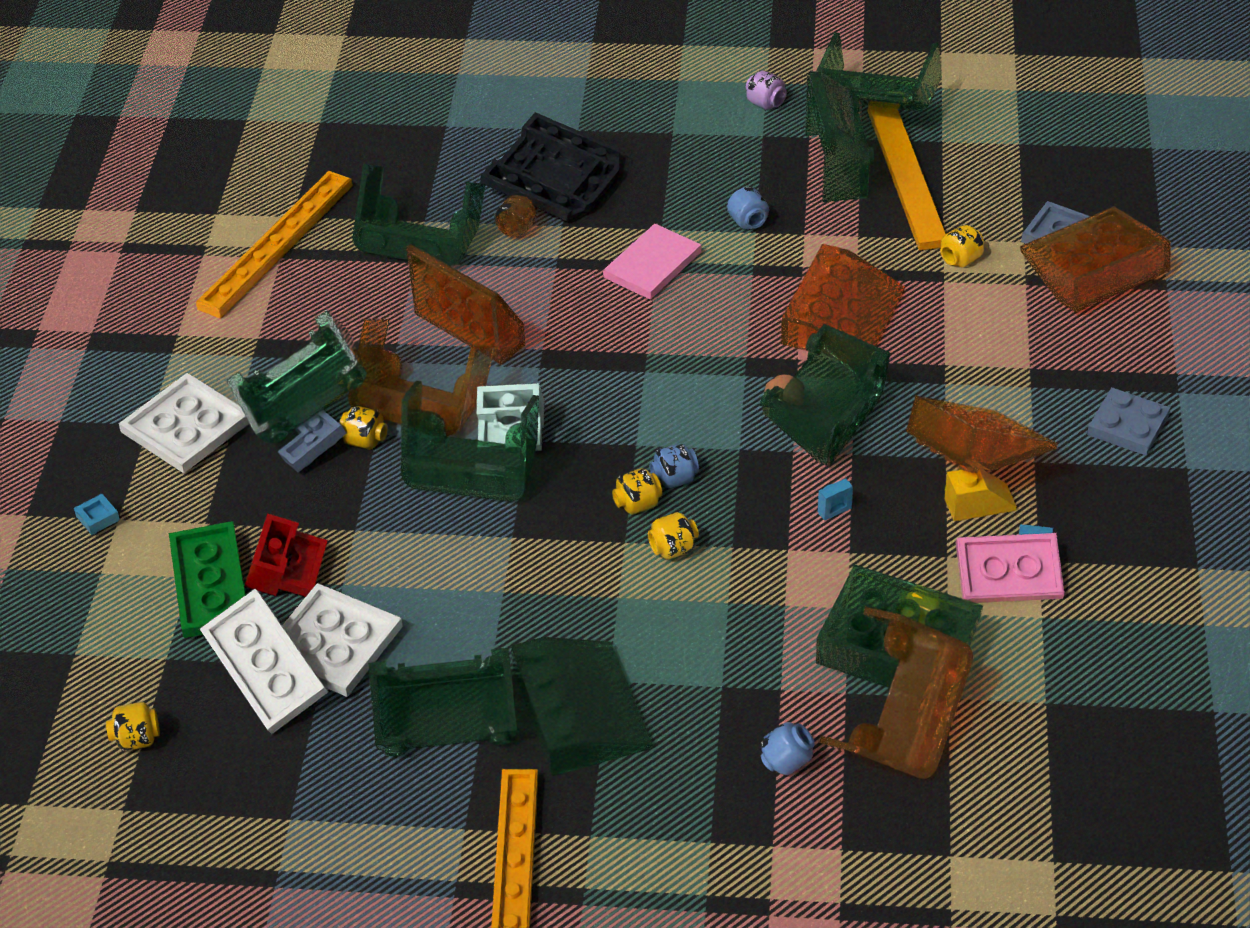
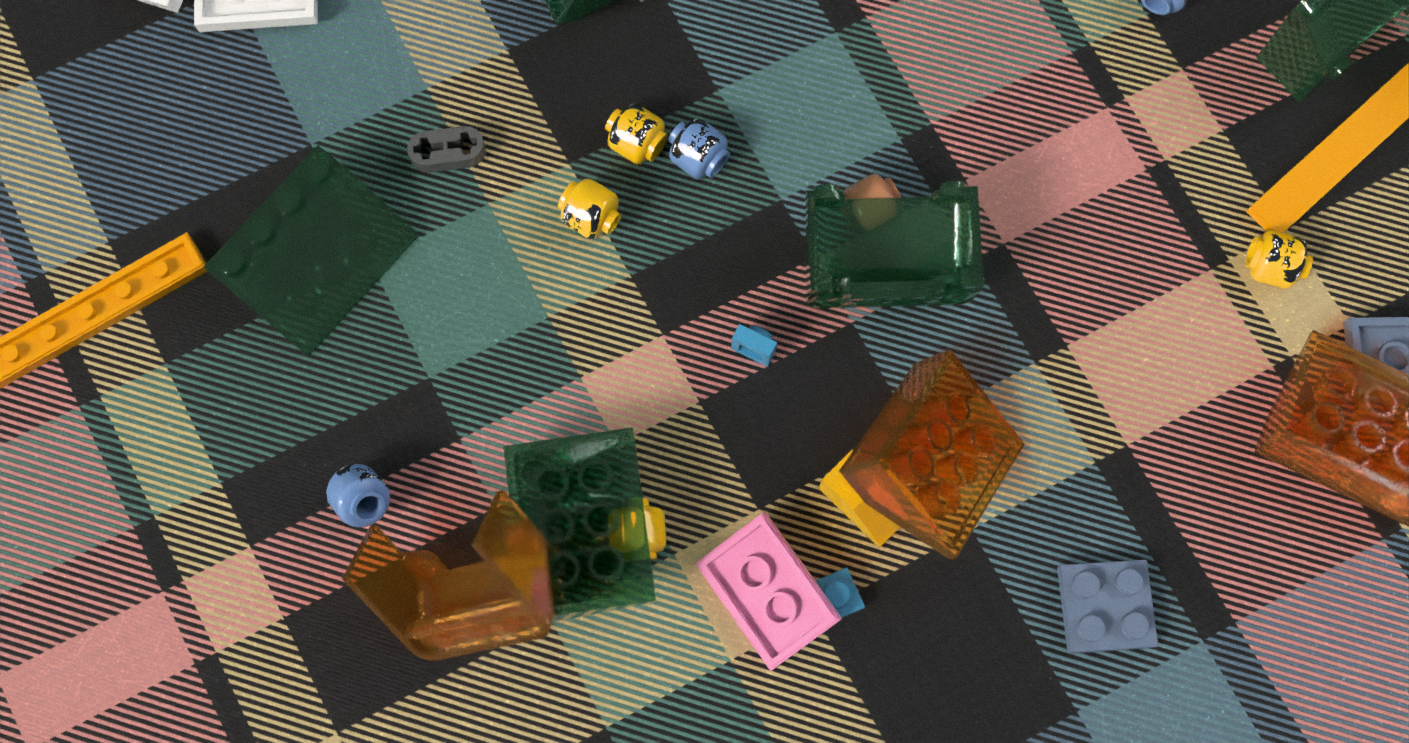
camera: 55 degrees right, 30 degrees up
(443, 703) = (226, 118): clear green windscreen -> none
(555, 594) = (446, 149): none -> dark grey beam
(841, 293) = (1074, 180): clear orange slope -> none

